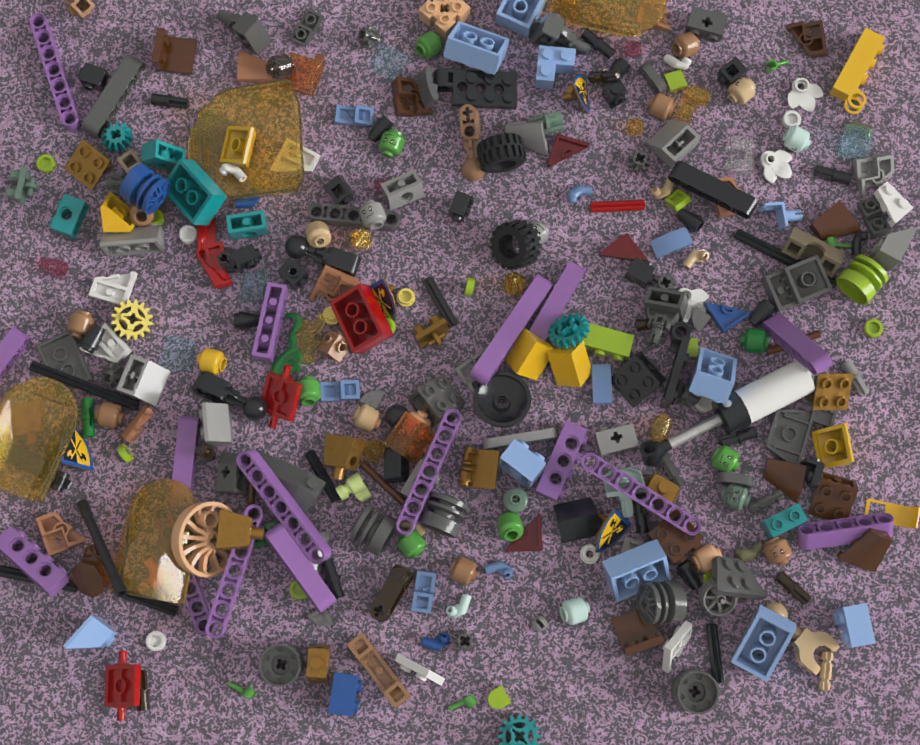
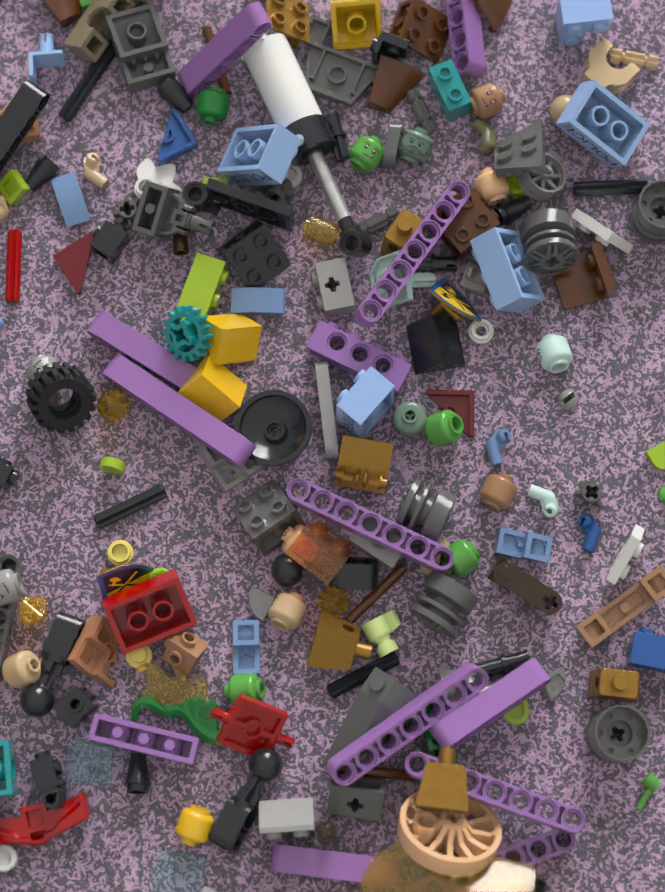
camera: 85 degrees left, 0 degrees up
(433, 333) = (177, 517): pearl gold hips -> none
(699, 318) = (177, 171): flat silver tile -> none
(793, 588) = (531, 88): dark brown axle -> none

